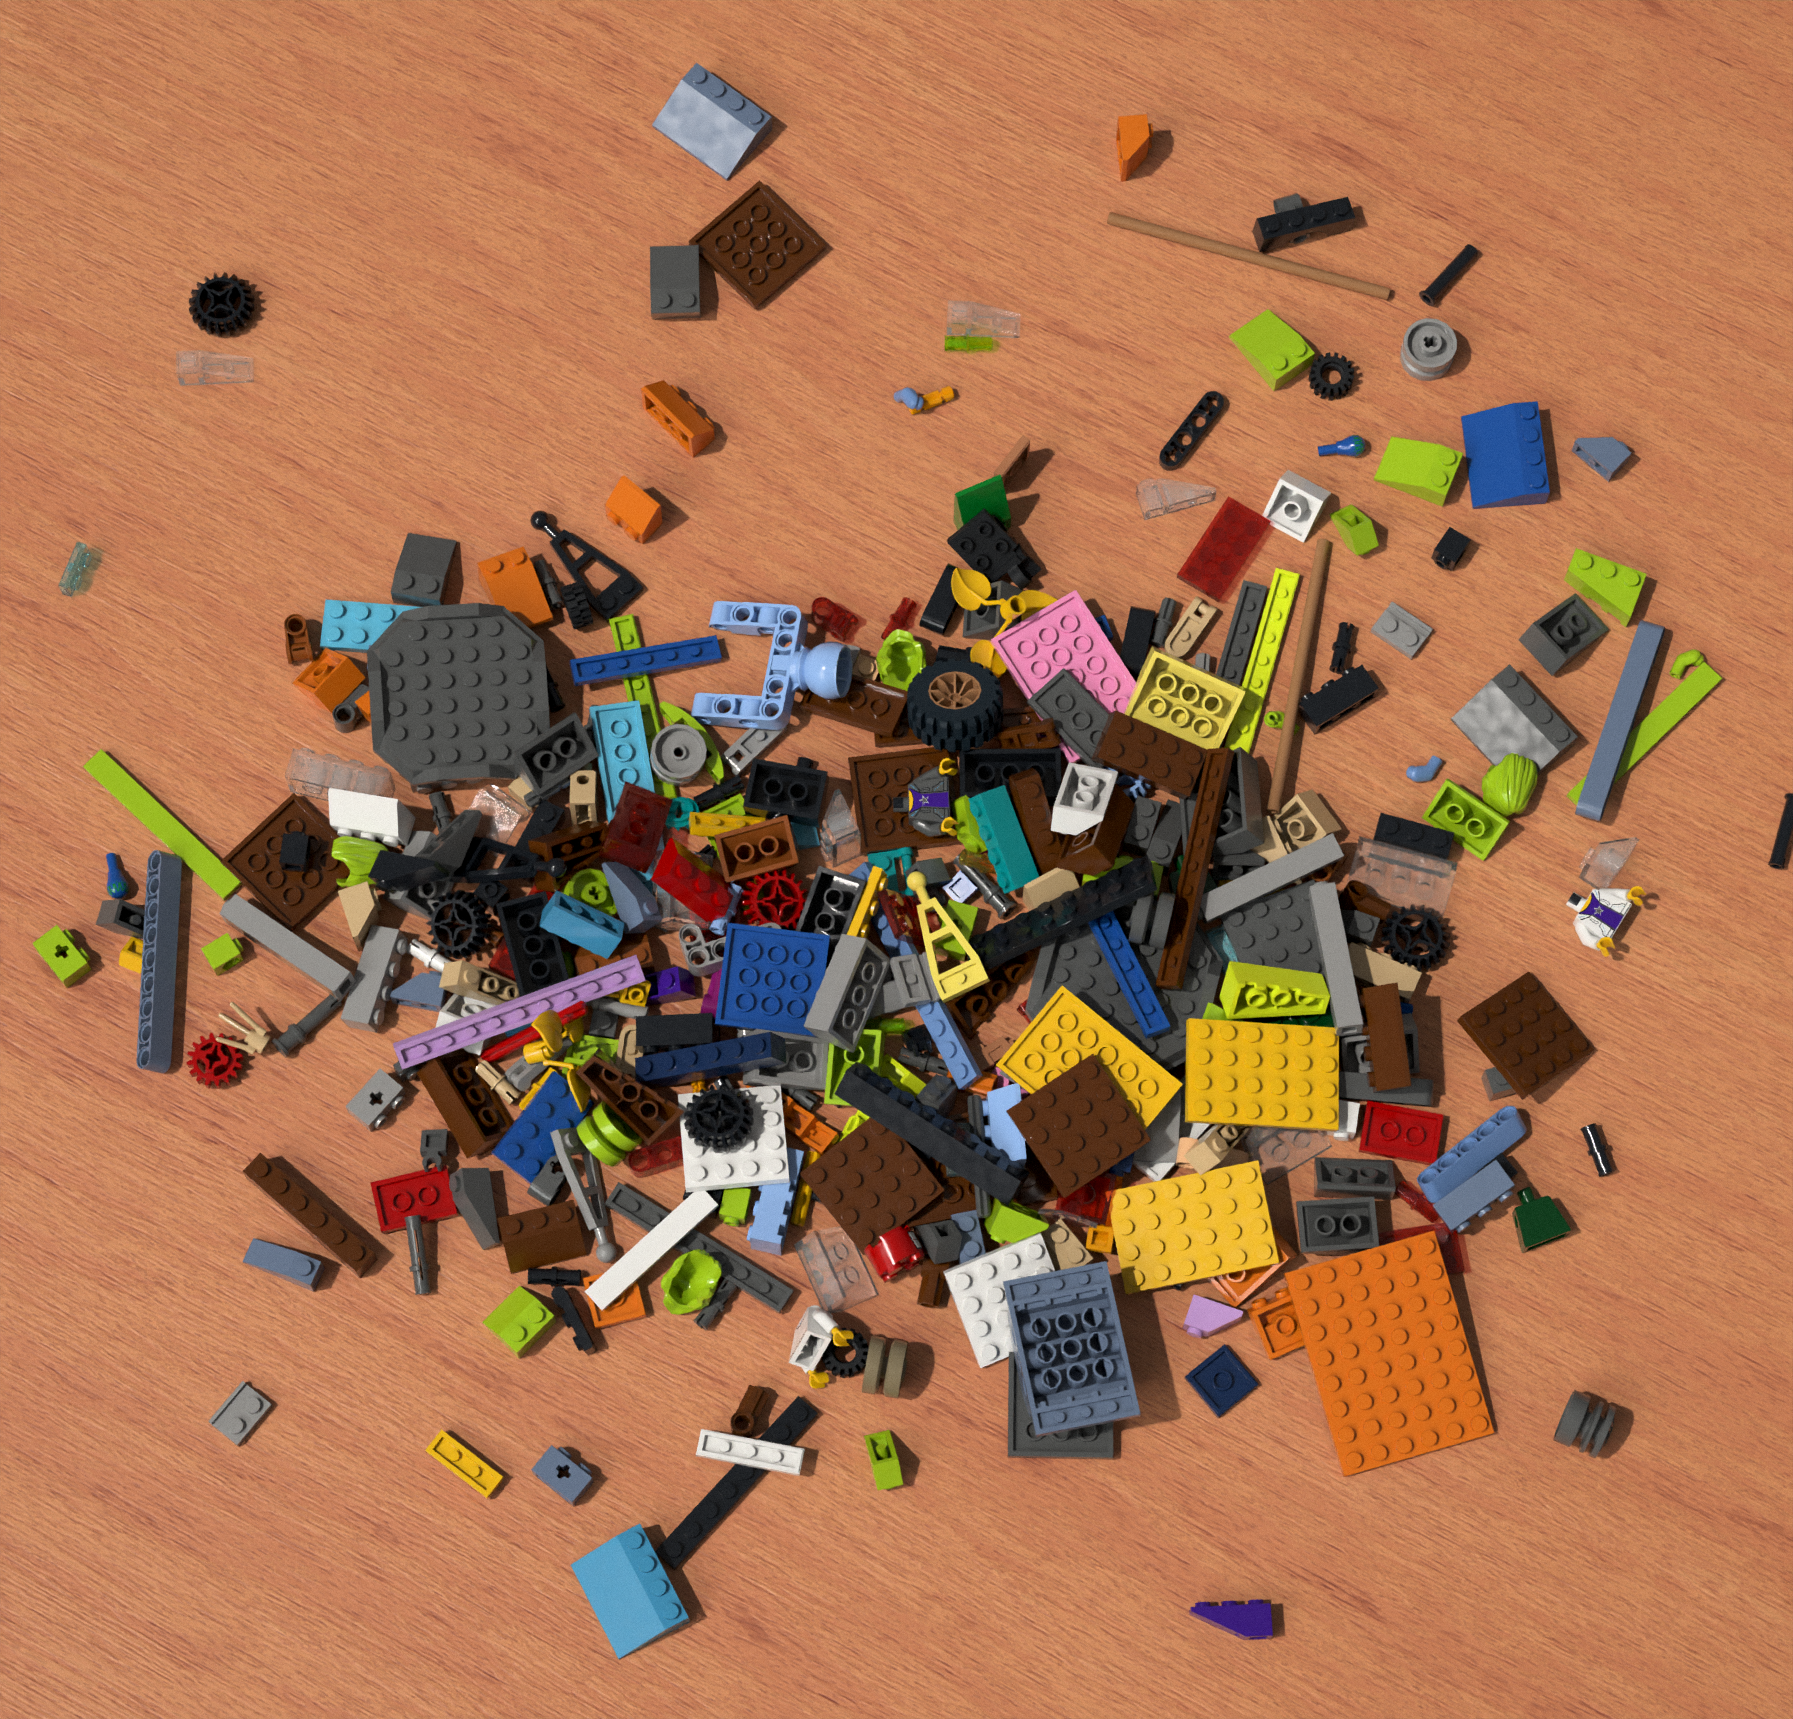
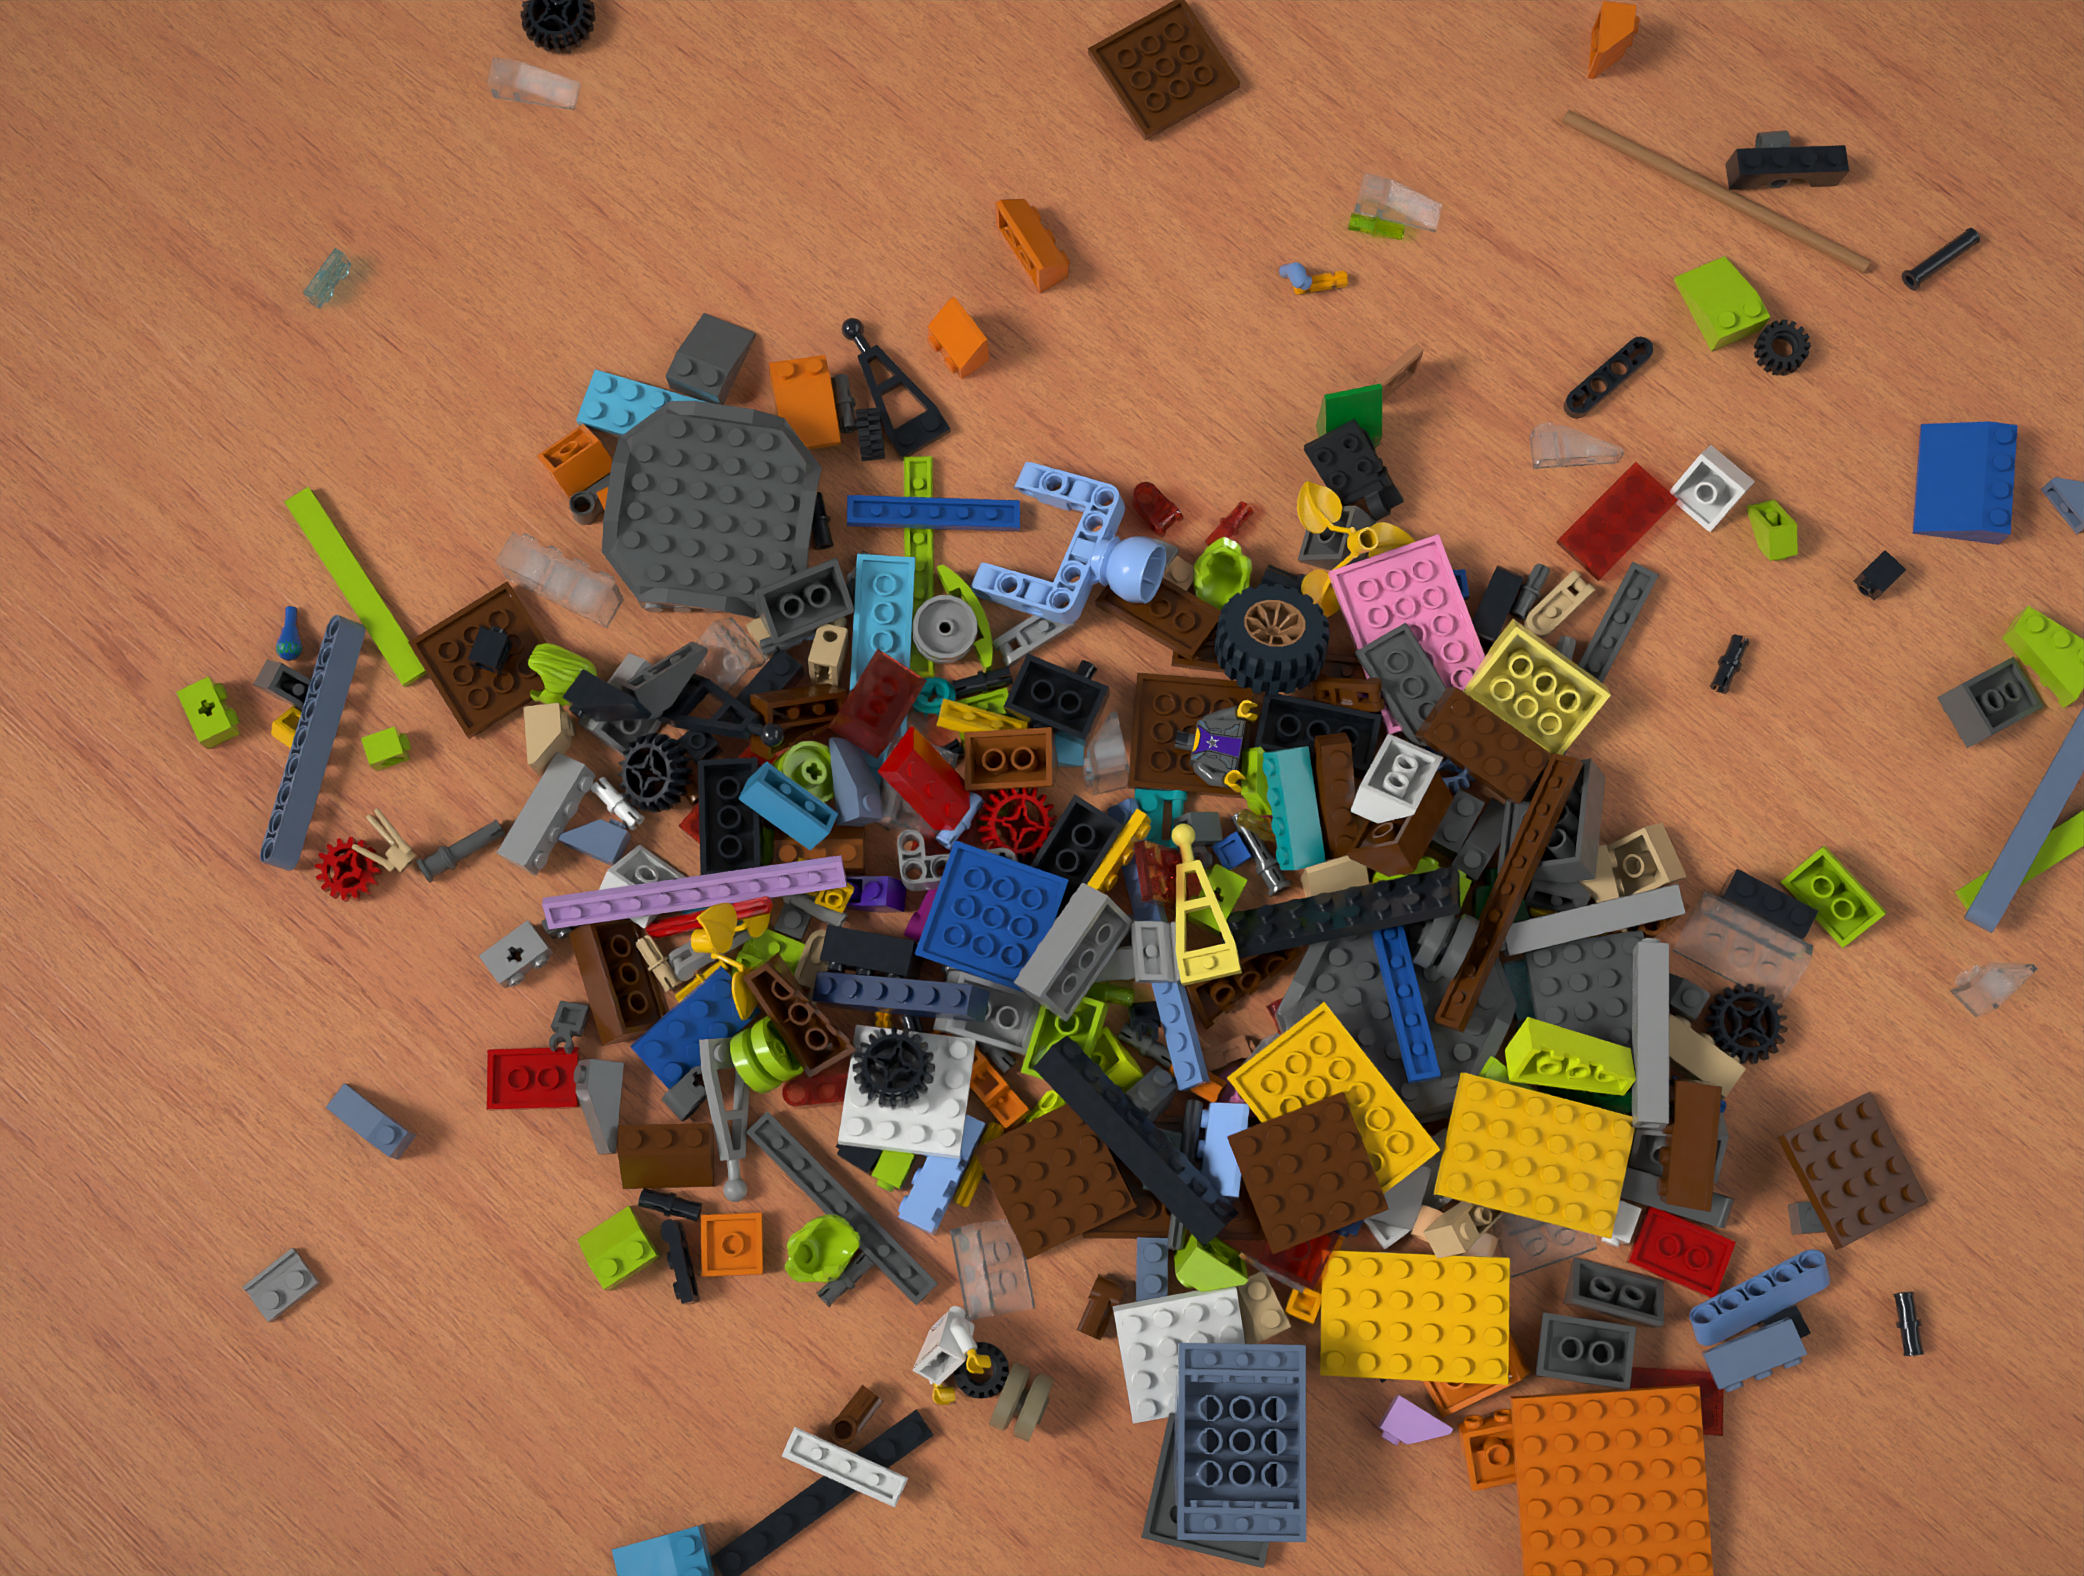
camera: 15 degrees right, 5 degrees up
(287, 947) = (457, 758): light grey brick -> none
(297, 643) = (552, 414): dark orange piece -> none
(310, 1215) = (411, 1072): reddish brown brick -> none
(370, 817) = (582, 629): white slope -> none
(421, 1286) = (518, 1181): dark grey pin -> none
(442, 815) = (666, 640): dark grey pin -> none
(464, 1464) = (517, 1403): yellow plate -> none
(477, 983) = (659, 845): tan slope -> none
(569, 1488) = (610, 1437): sand blue brick -> none
(651, 1249) = (784, 1200): white tile -> none
(675, 282) = (1062, 91): dark grey slope -> none
(883, 1460) = (996, 1509): lime slope -> none
(894, 1252) = (1062, 1266): red brick -> none
(940, 1240) = (1118, 1264): dark grey slope -> none
(941, 604) = (1281, 518): black beam -> none
(1221, 1381) = (1409, 1501): dark blue tile -> none
(1262, 659) = (1635, 657): neon yellow tile -> none
(1275, 719) = (1641, 733): lime arm -> none
(1297, 676) = (1672, 688): medium nougat piece -> none
(1337, 698) = (1712, 722): black brick -> none
(1350, 446) = (1787, 432): blue piece -> none
(1356, 897) = (1688, 962): reddish brown piece -> none
(1401, 630) = (1802, 657): light grey plate -> none
(1416, 1201) = (1683, 1338): clear red axle -> none
(1419, 468) = (1862, 474): lime slope -> none
(1424, 773) = (1796, 830): medium blue arm -> none
(1428, 349) = (1901, 339): light grey wheel -> none
(1509, 784) = (1893, 868): lime hair -> none
(1514, 719) = (1911, 800): slope -> none
(1537, 1221) = (1821, 1394): dark green torso -> none
(1602, 914) = (1971, 1044): torso -> none

